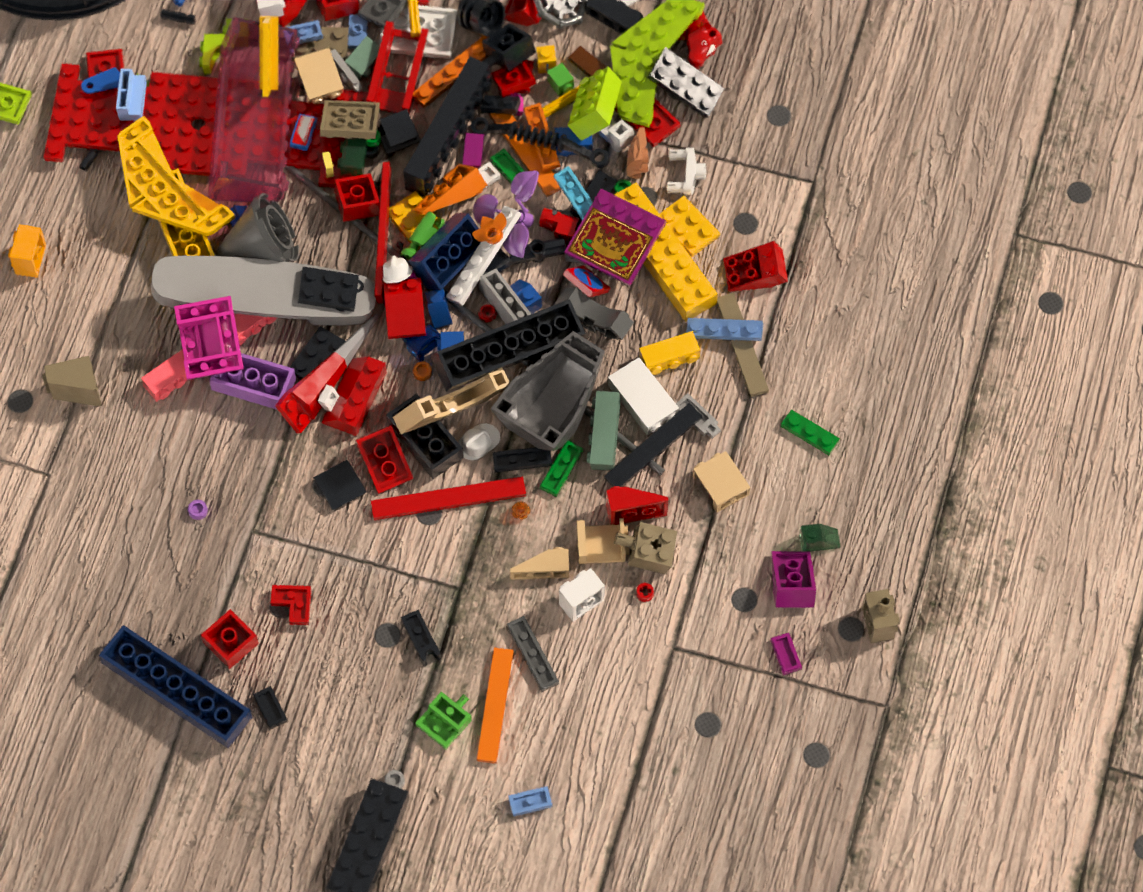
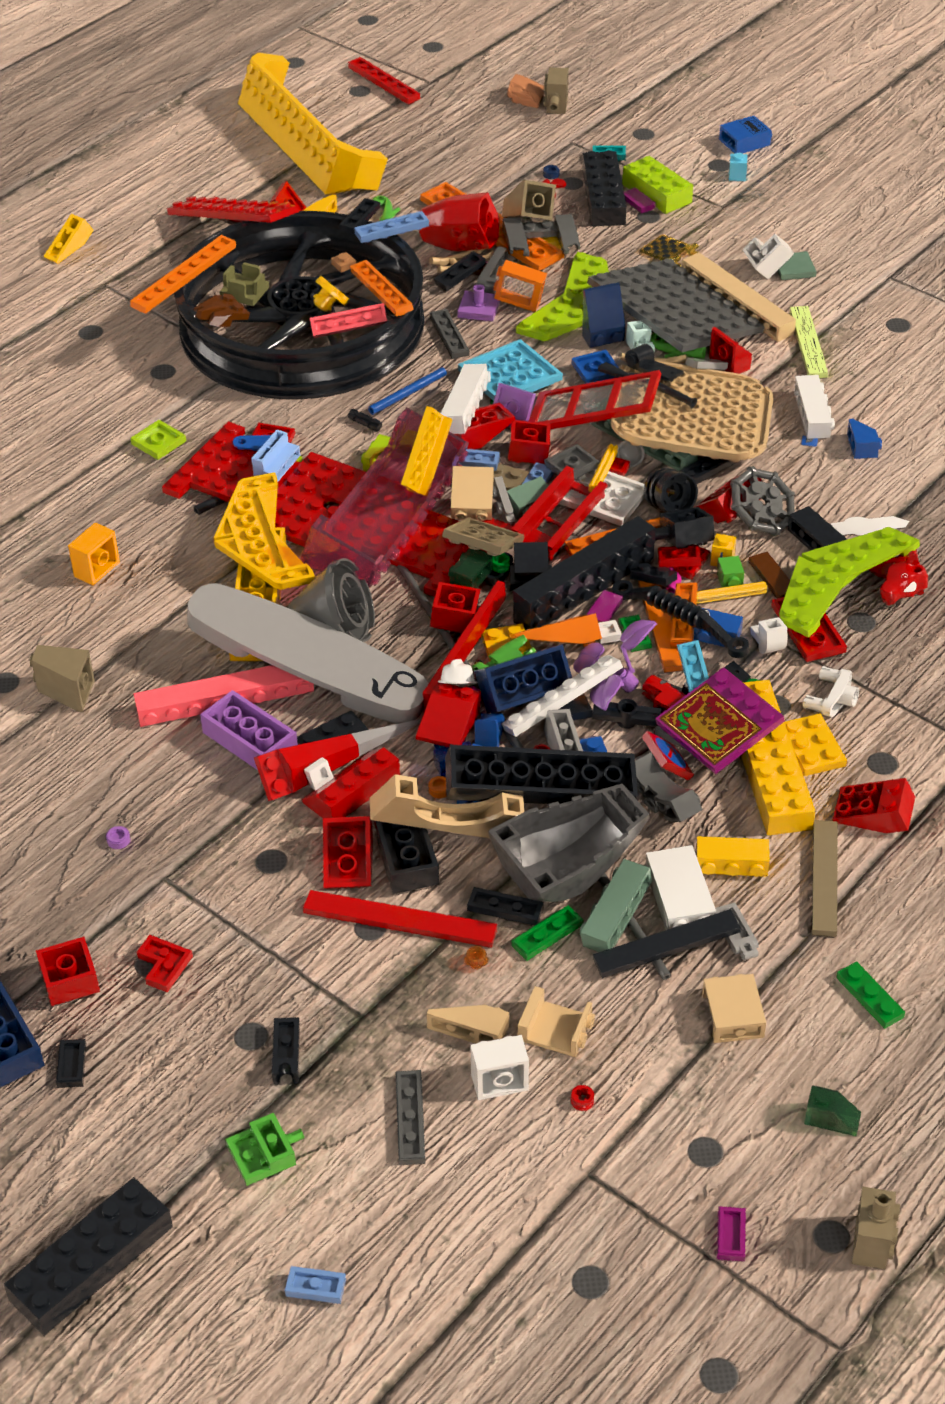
camera: 25 degrees right, 20 degrees down
(209, 337) = (219, 669): dark pink slope -> none
(303, 132) = (428, 537): slope -> none
(328, 164) = (439, 568): light yellow tile -> none
(328, 289) = (374, 671): black plate -> none
(339, 484) = (284, 864): black slope -> none
(395, 778) = (168, 1195): light grey tile -> none
(479, 441) = (465, 873): white piece -> none
(491, 229) = (581, 668): orange plate -> none
(495, 705) = (332, 1159): orange tile -> none
(594, 103) = (753, 591): lime brick -> none
(634, 505) = (613, 993): red slope -> none
(637, 155) = (781, 658): nougat slope -> none
(650, 547) = (609, 1045): dark tan brick -> none
(685, 82) = (868, 610): plate -> none
(725, 329) = (812, 853): medium blue plate -> none
(793, 579) = (777, 1148): magenta slope -> none

